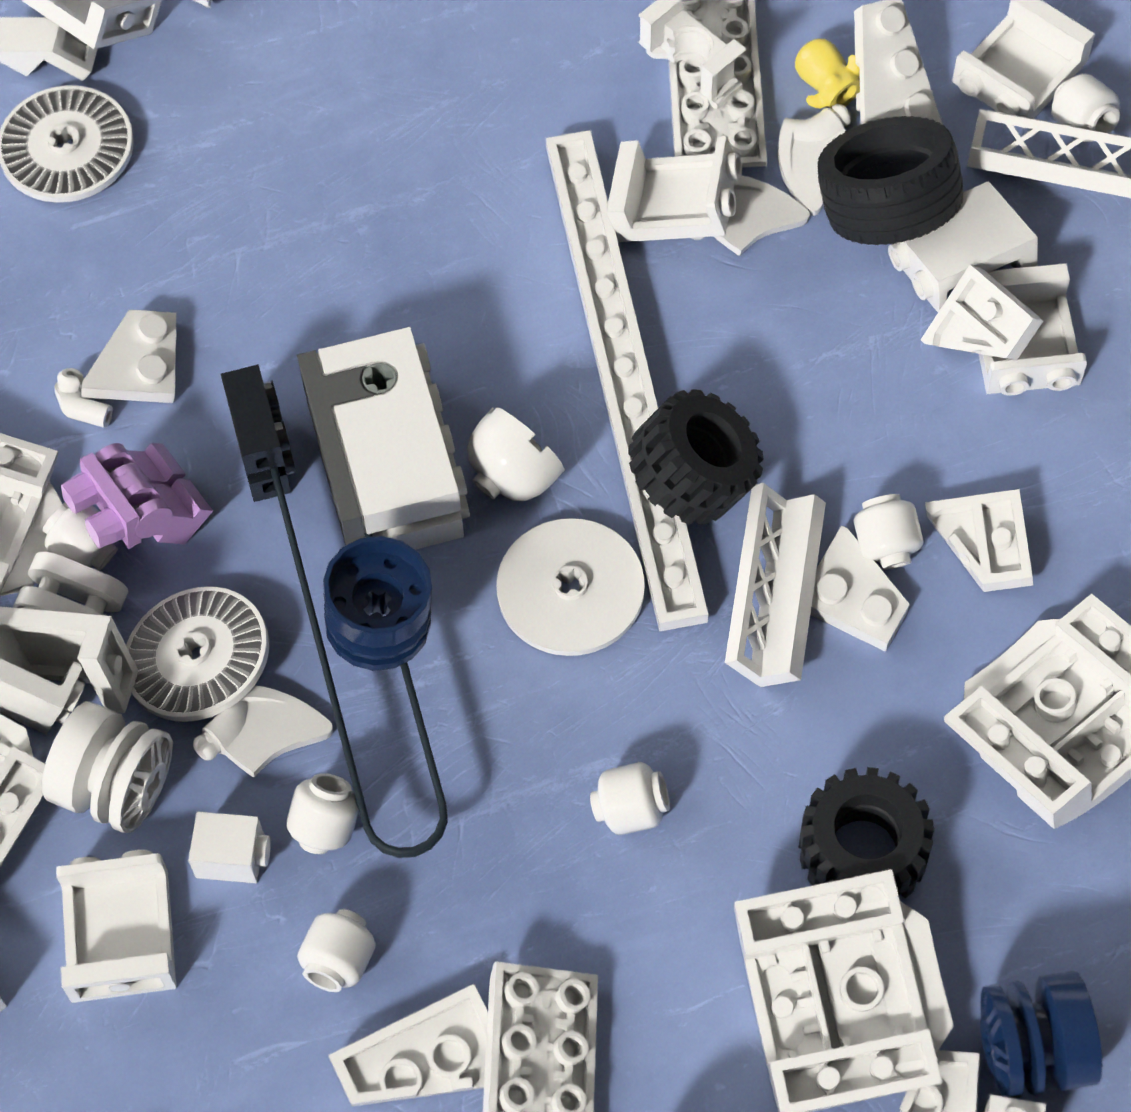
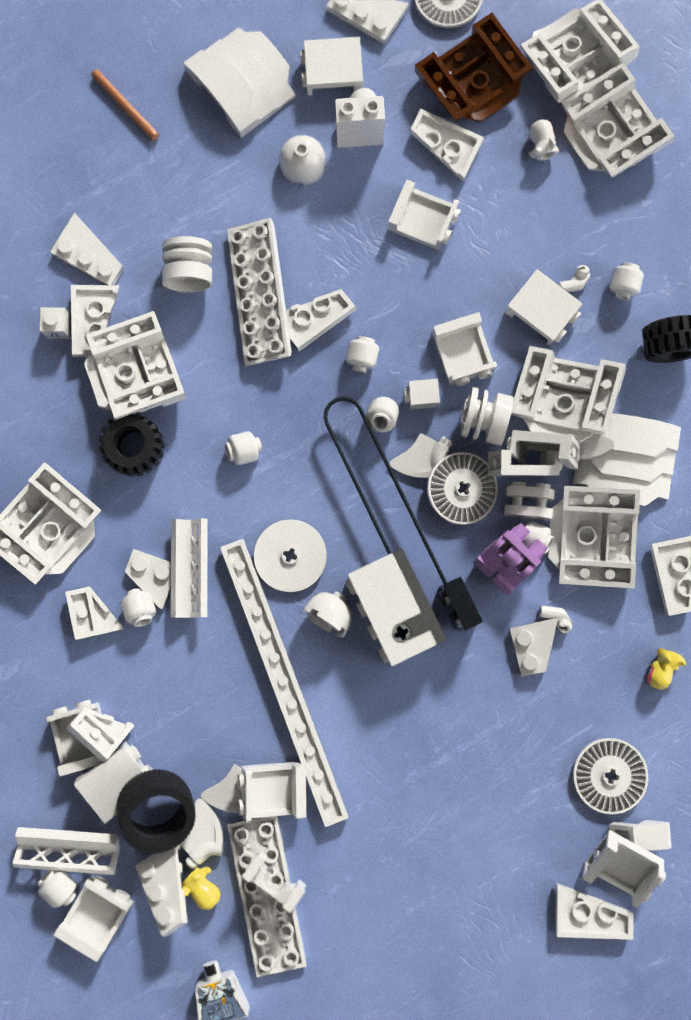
camera: 170 degrees right, 20 degrees up
(377, 579) = (374, 490): dark blue wheel -> none
(695, 457) = (220, 626): black tyre -> none
(1051, 1033) = (47, 362): dark blue wheel -> none

